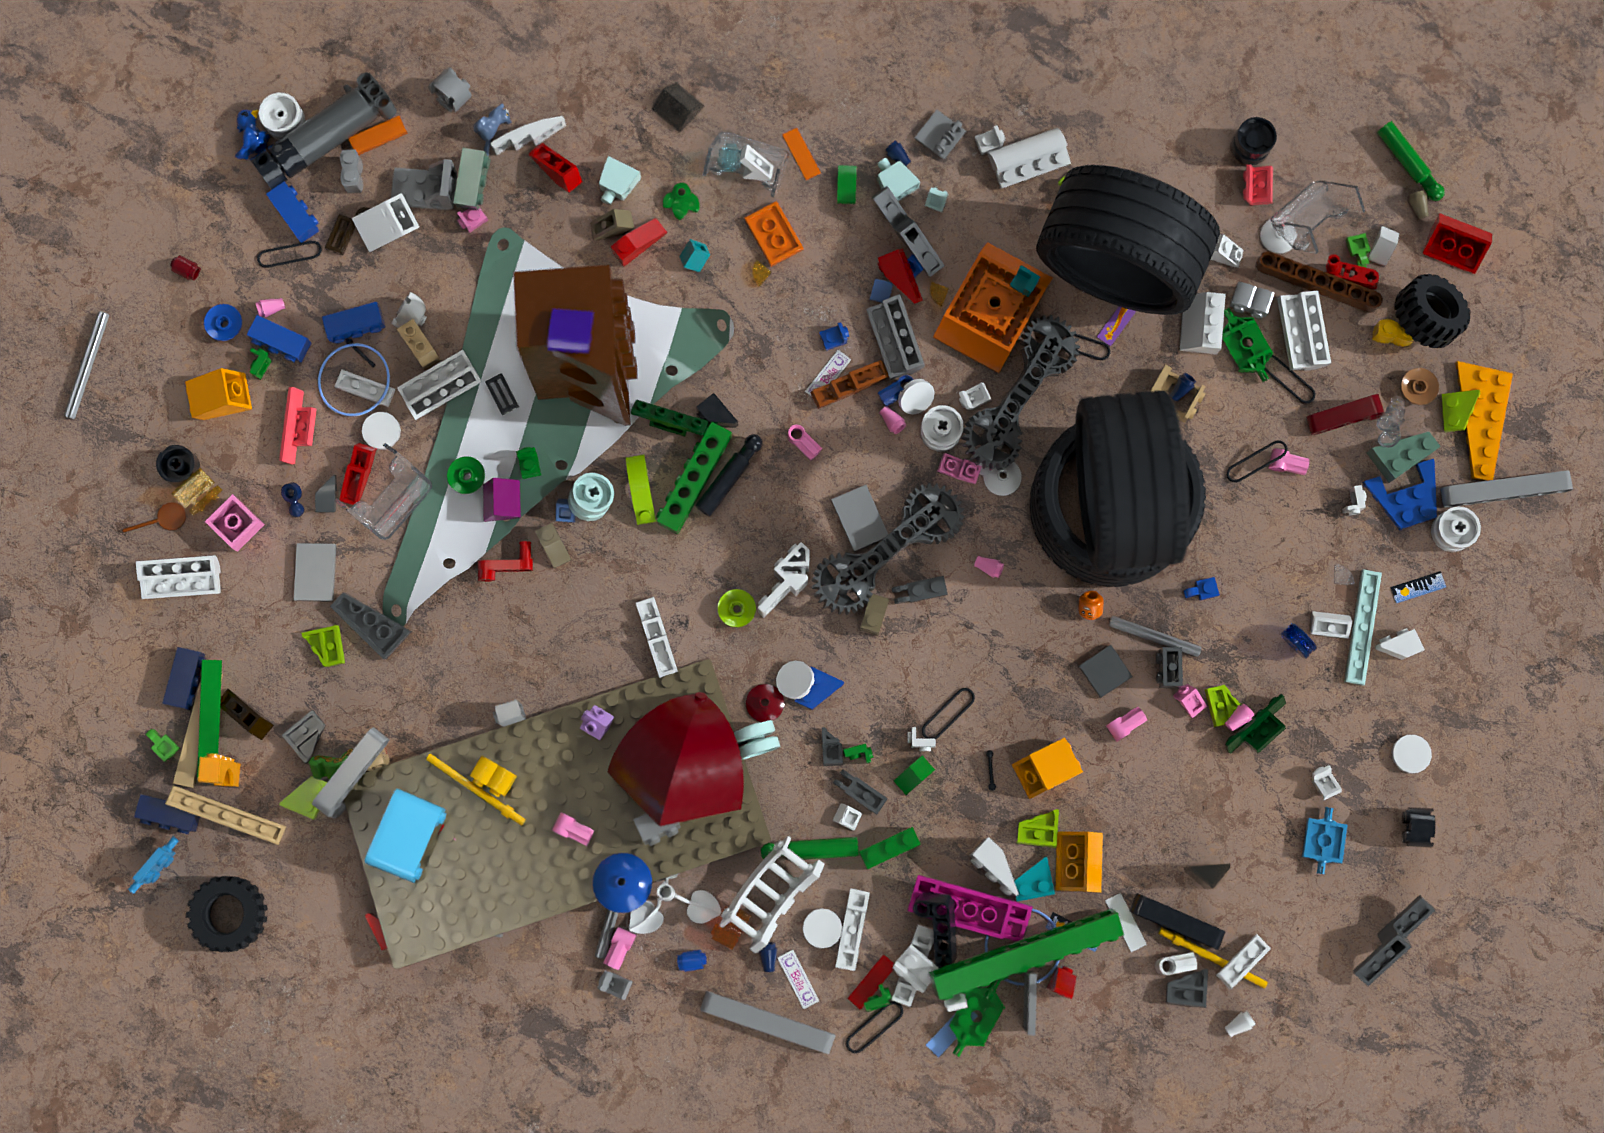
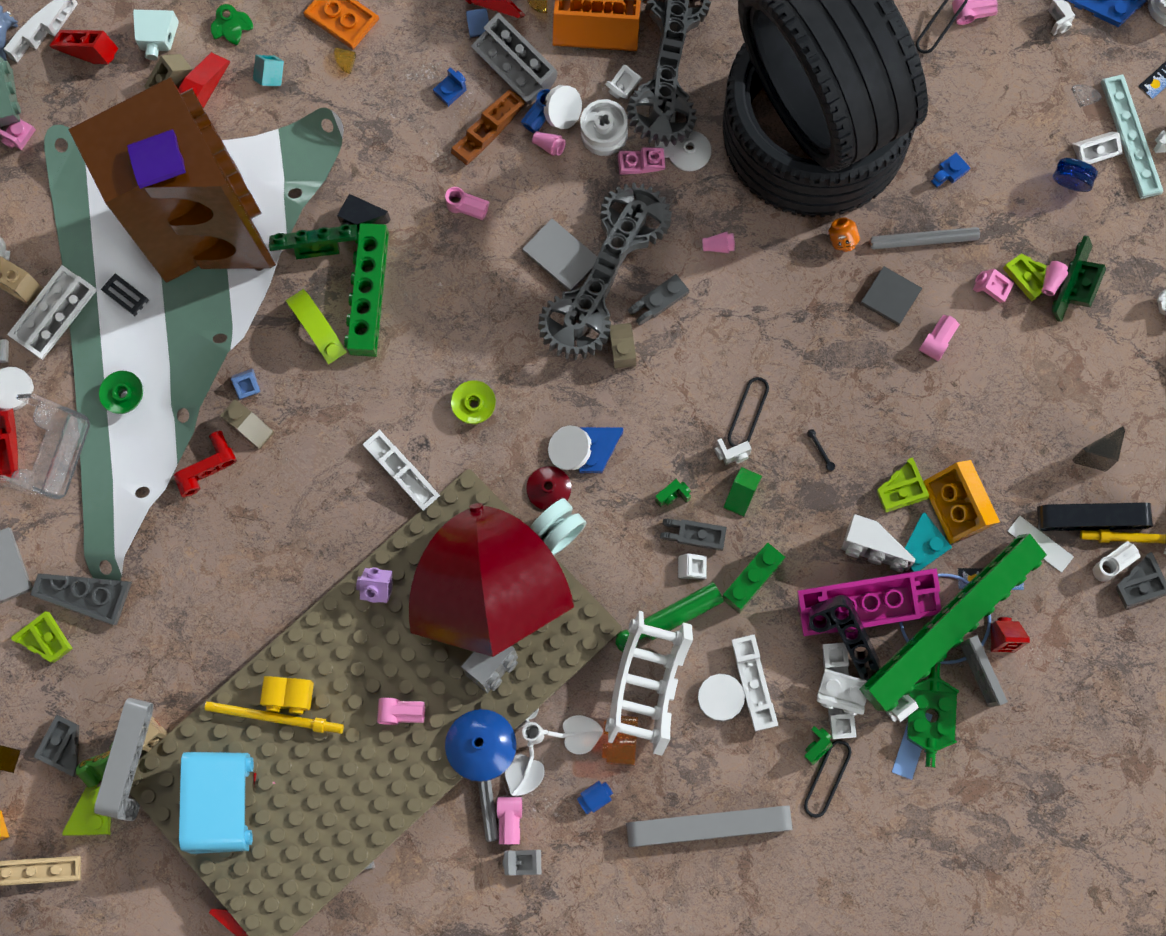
camera: 15 degrees left, 5 degrees down
(501, 499) = (170, 400): magenta slope -> none
(509, 713) = (275, 619): light grey brick -> none
(528, 462) = (183, 349): green bracket -> none
(590, 496) = (265, 354): light aqua wheel -> none
(729, 476) = (403, 272): black piece -> none
(768, 957) = (677, 754): dark blue cone -> none
(787, 572) = (515, 342): white piece -> none
(798, 979) = (720, 765): white sticker -> none
(830, 371) = (463, 121): white sticker -> none
(831, 749) = (642, 504): dark grey slope -> none
(871, 982) = (801, 731): red sticker -> none
(1047, 768) = (879, 419): light orange slope -> none
(1170, 667) = (957, 260): dark grey brick -> none

